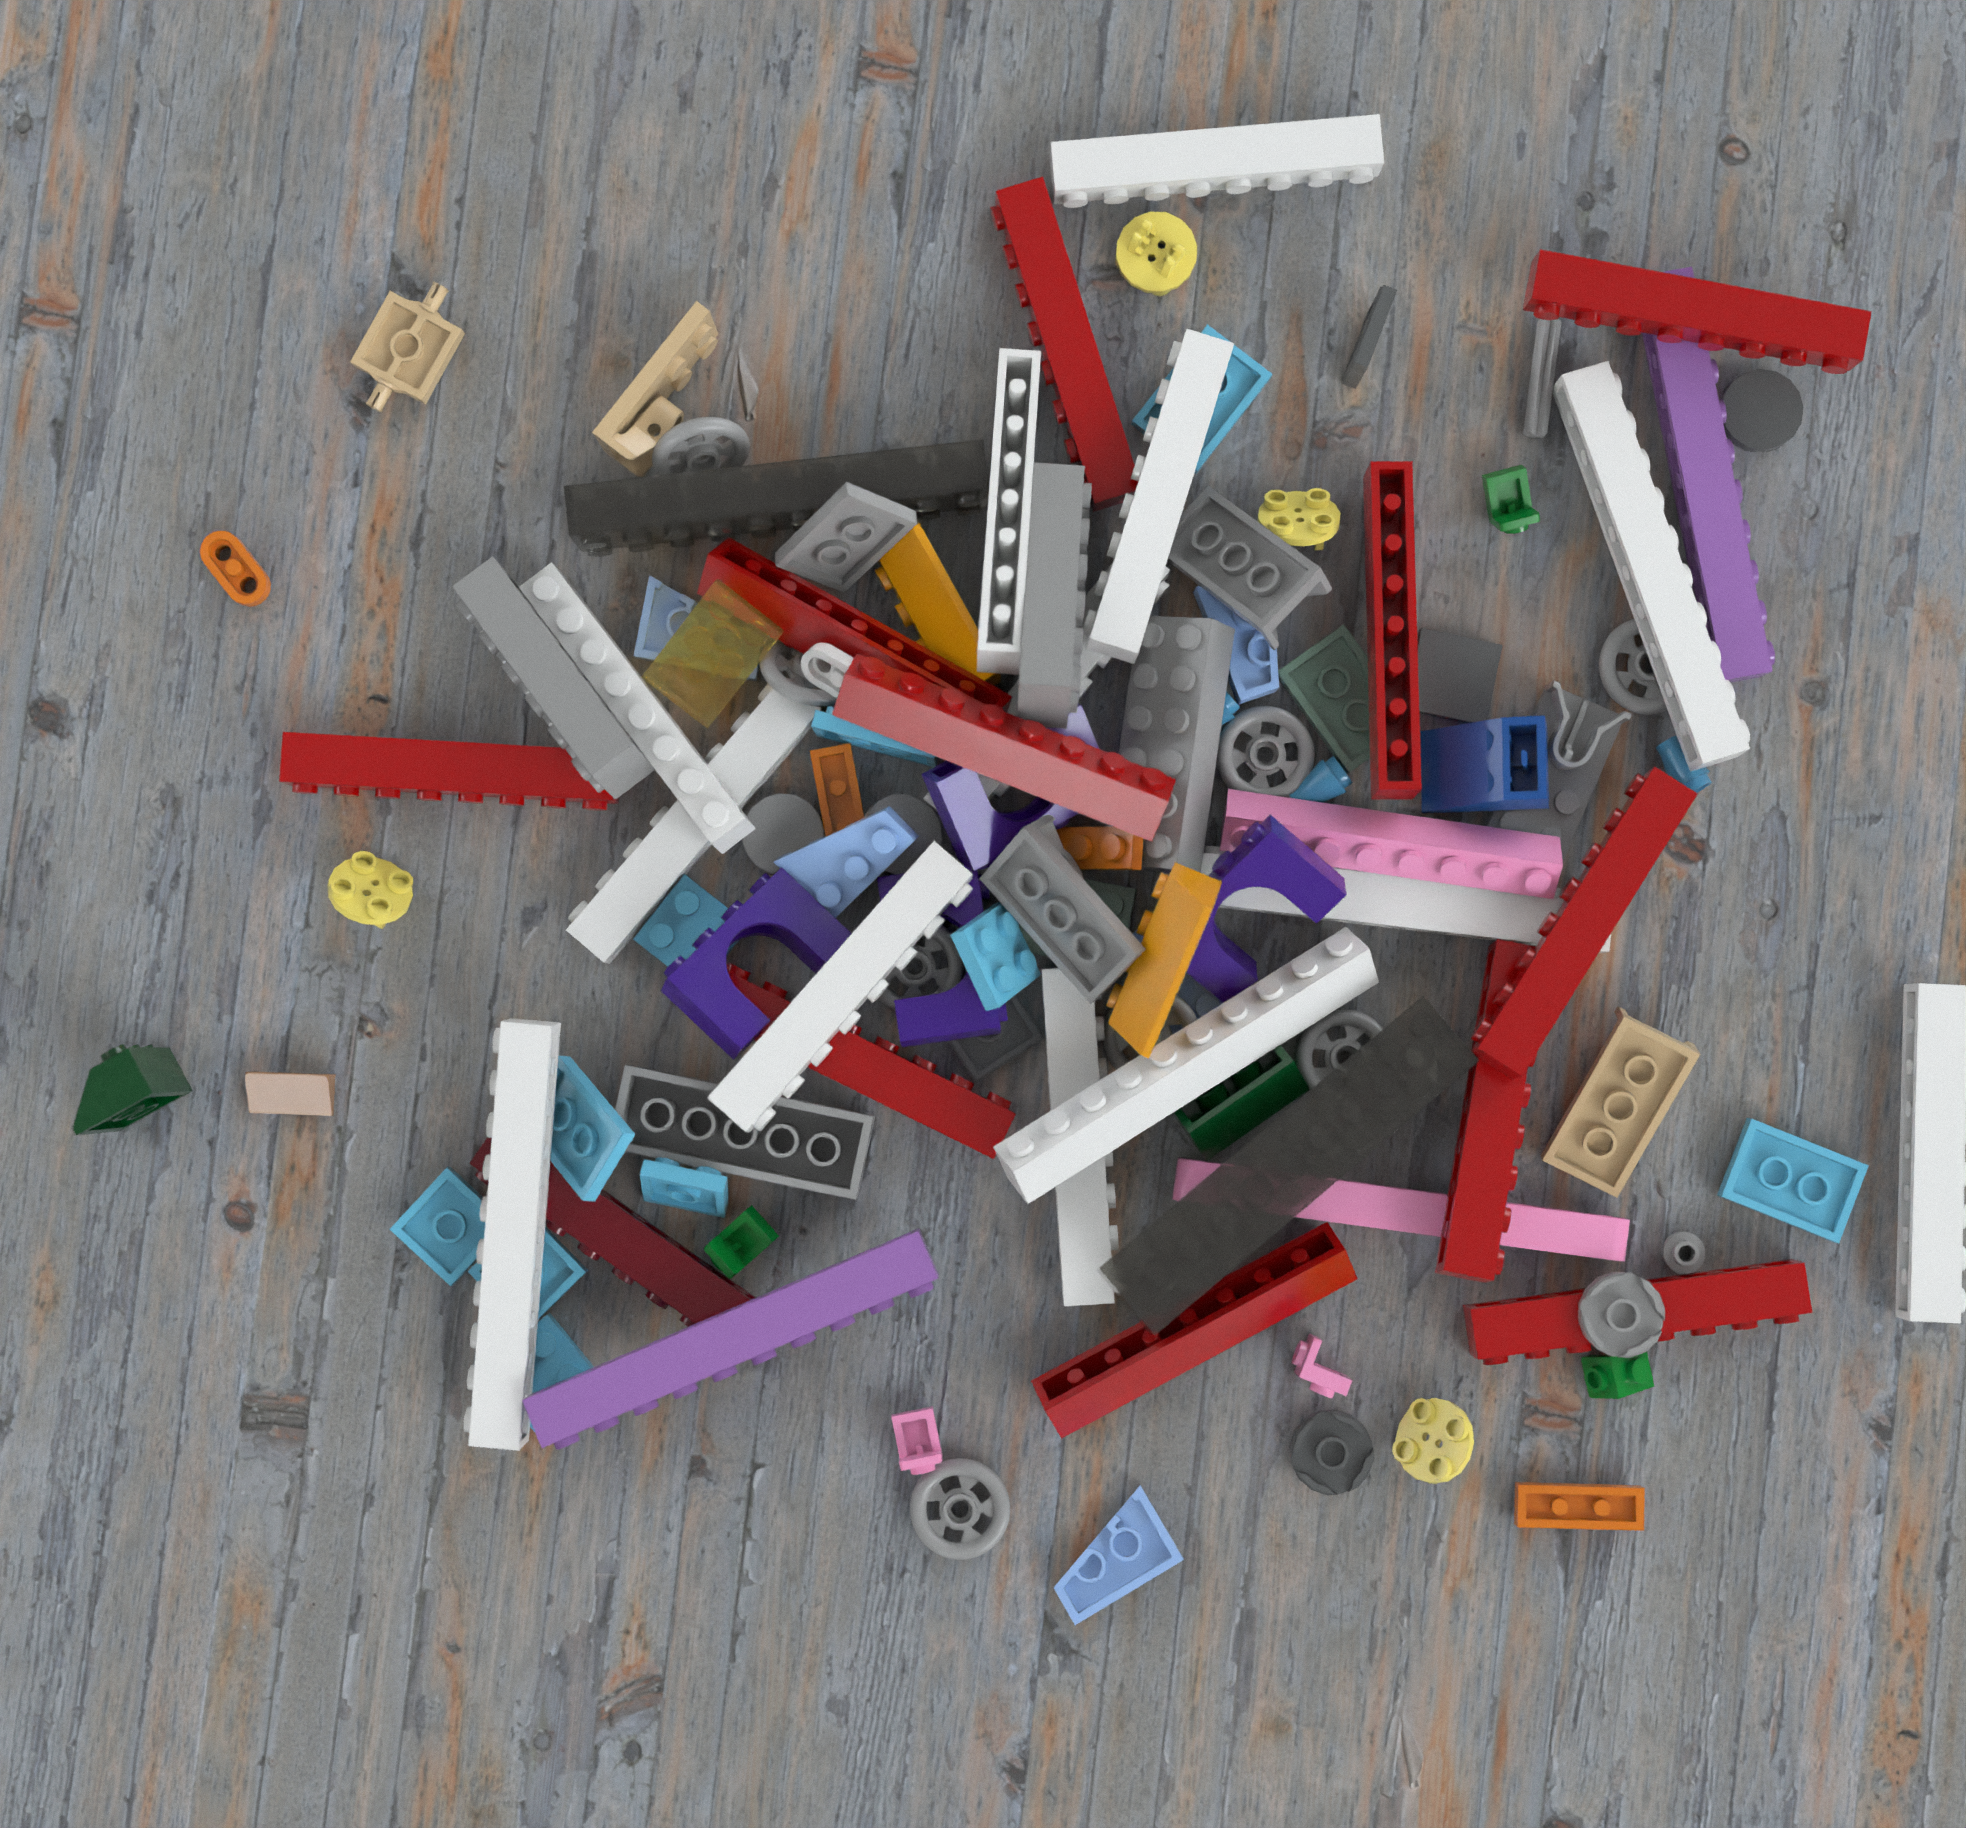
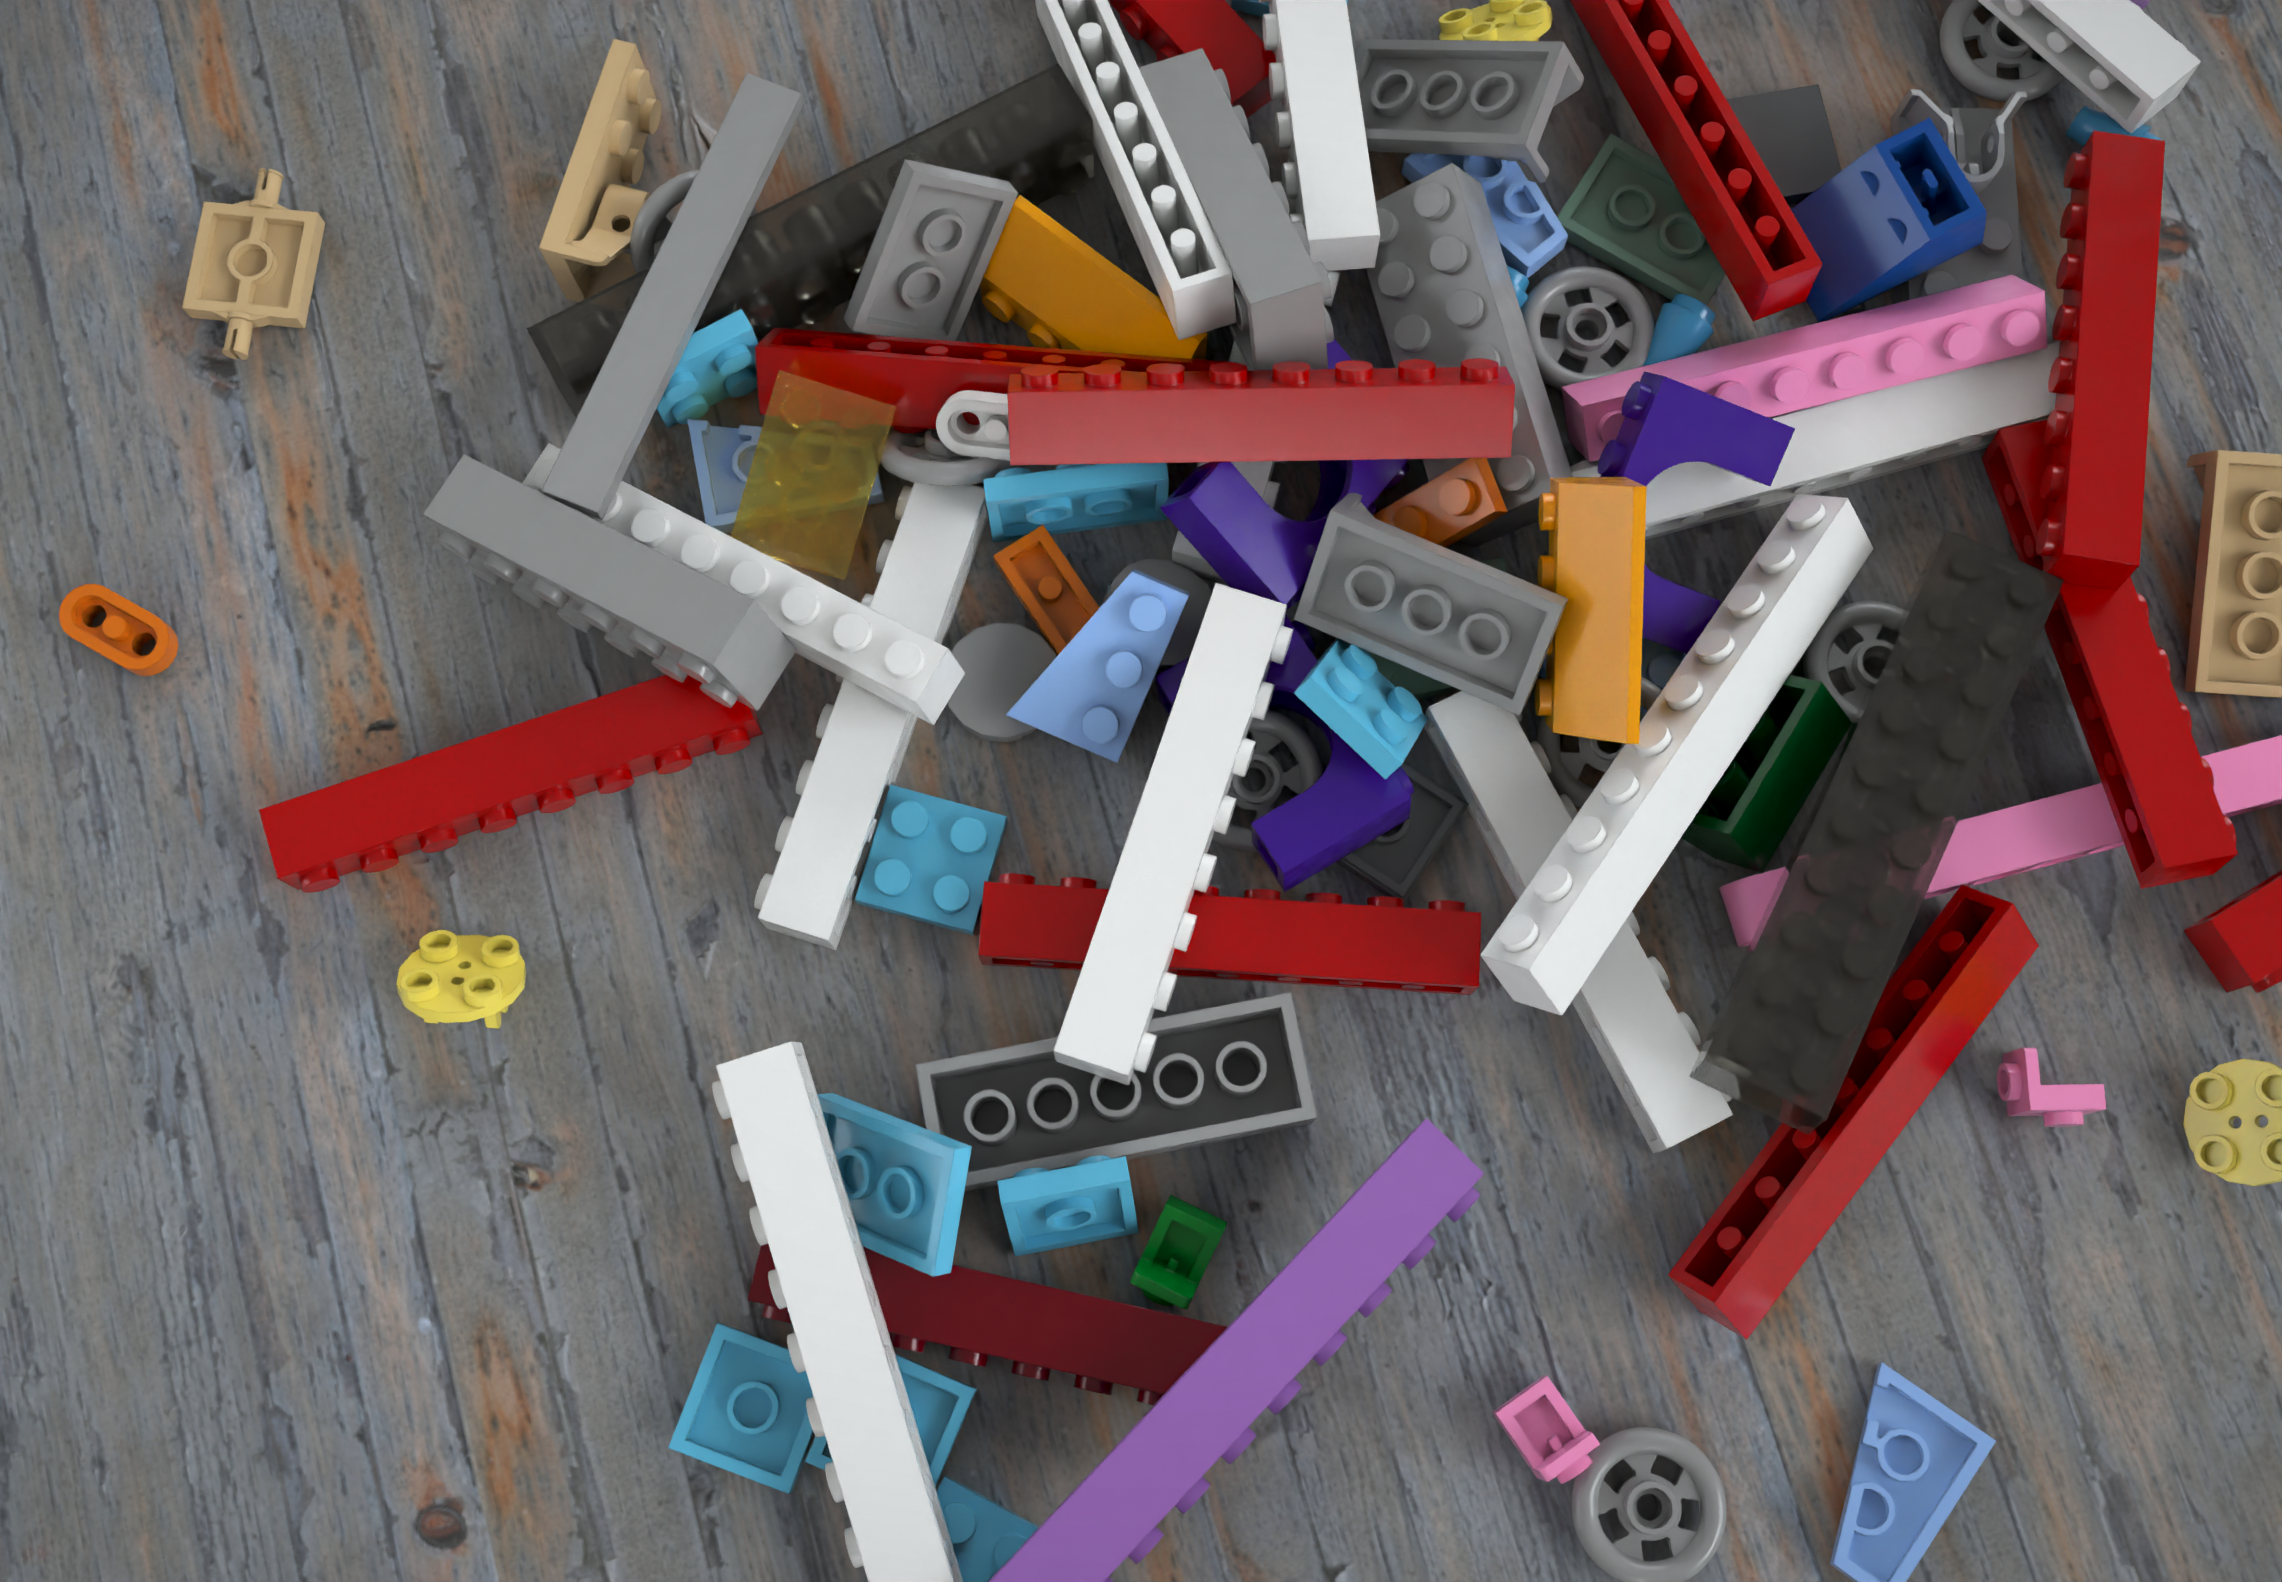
camera: 25 degrees left, 10 degrees down
(128, 1088) = (204, 1398): dark green slope -> none
(290, 1093) = (451, 1312): slope -> none
(657, 552) = (712, 368): none -> medium azure plate
(667, 503) = (673, 297): none -> light grey tile
(702, 983) = (979, 902): dark purple arch -> none
(1331, 1452) = (2114, 1204): dark grey tile -> none

